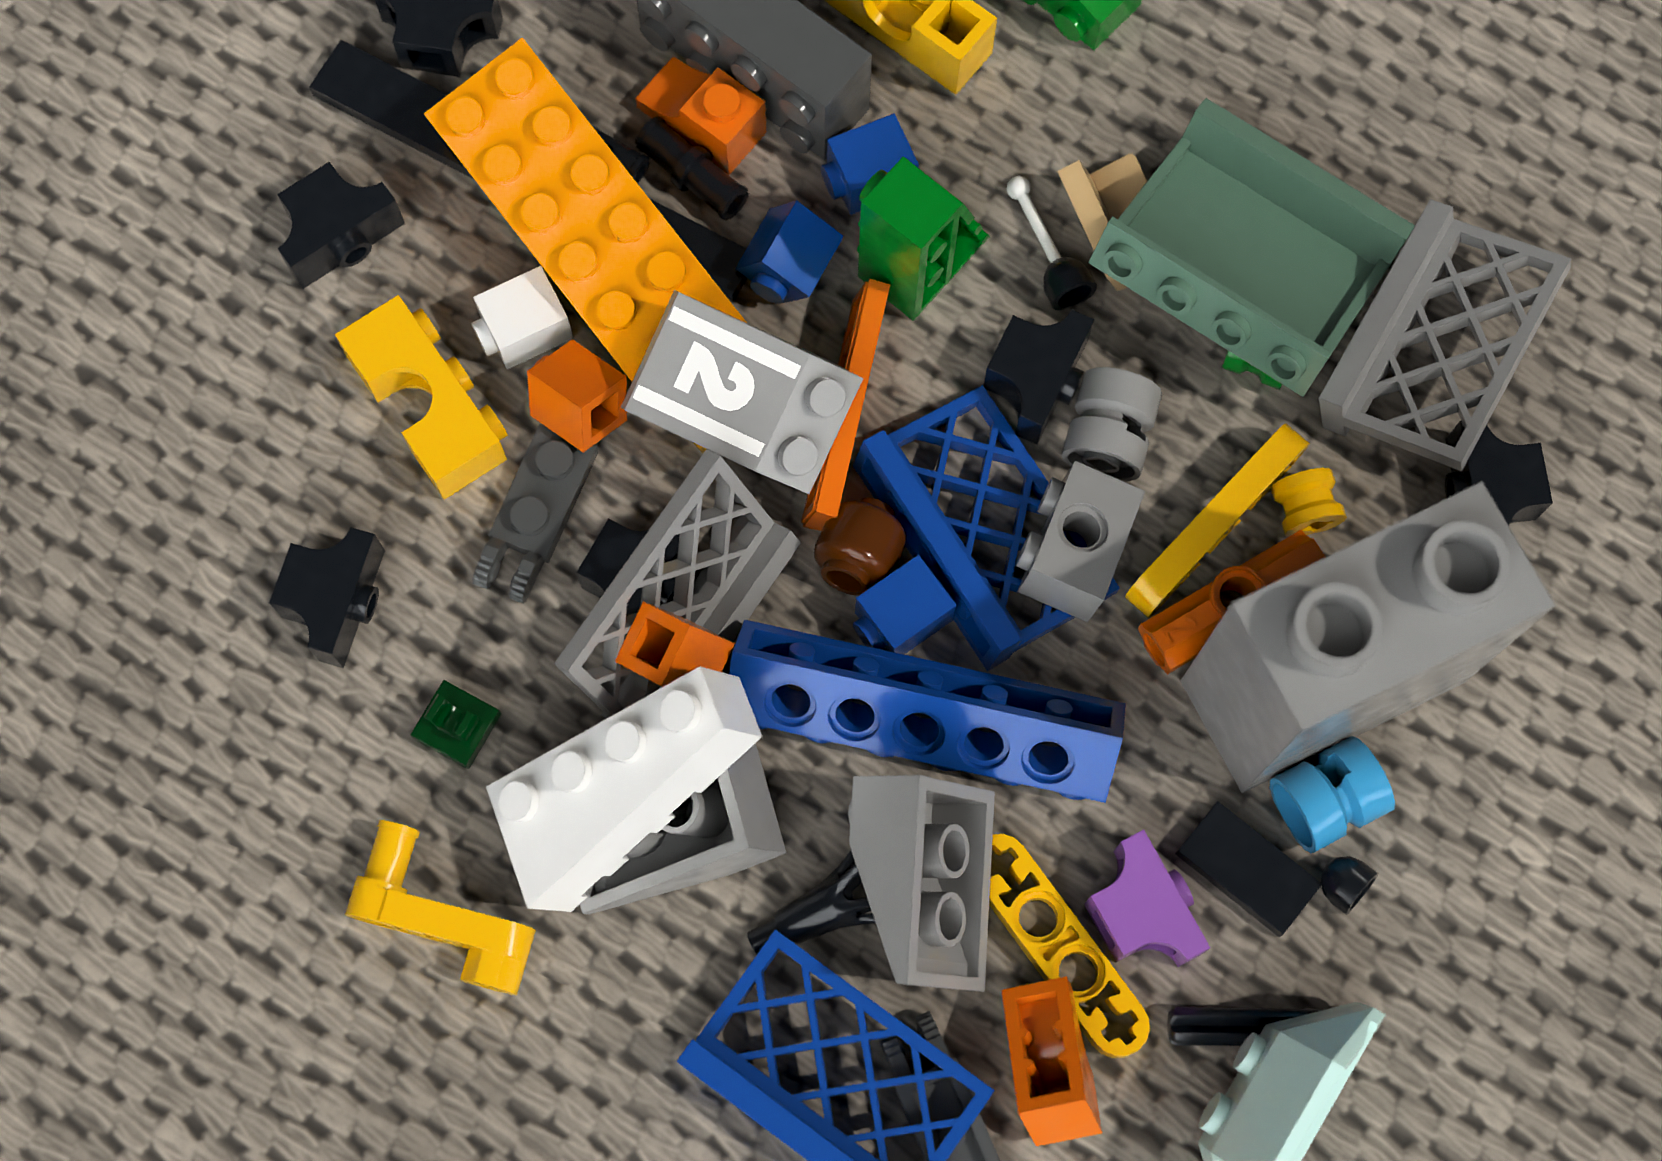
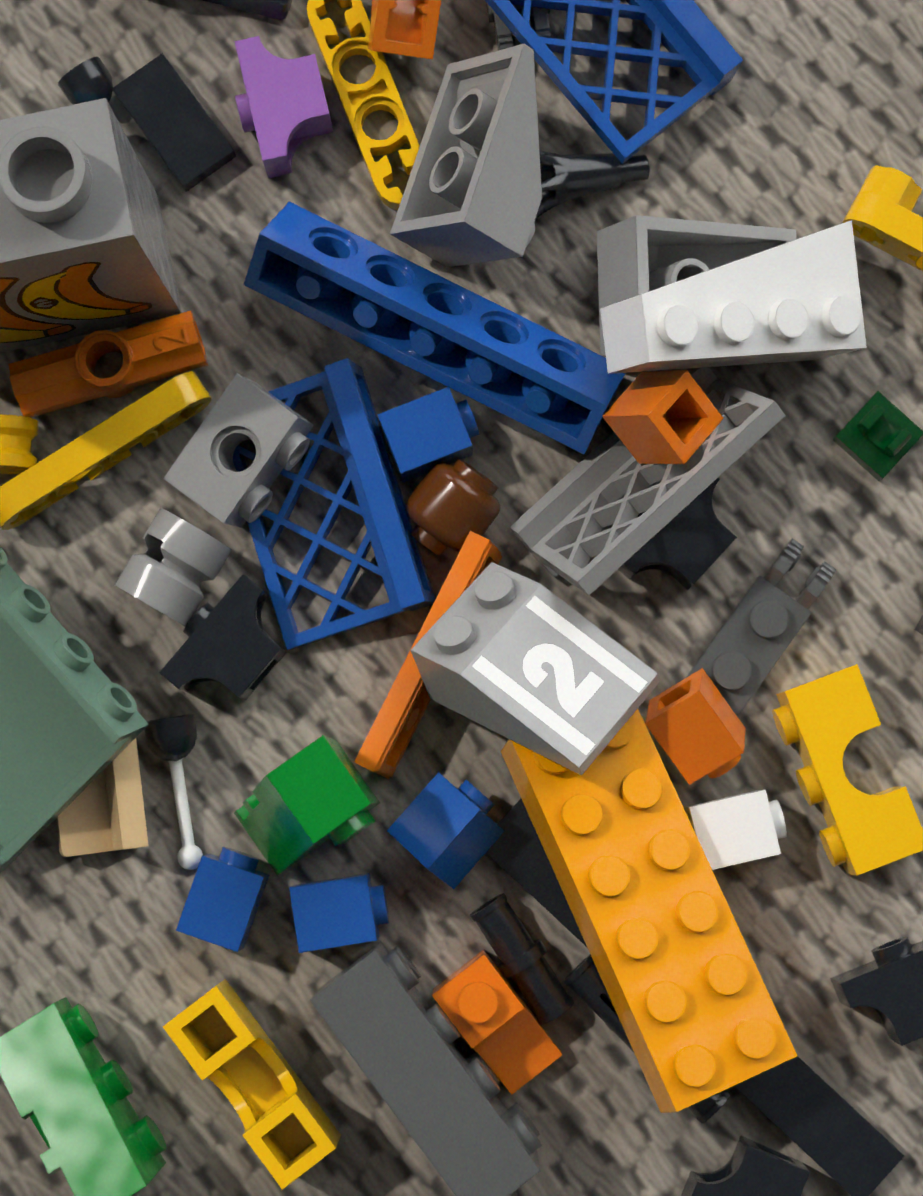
camera: 160 degrees left, 10 degrees up
(976, 150) = (224, 899): none -> blue brick

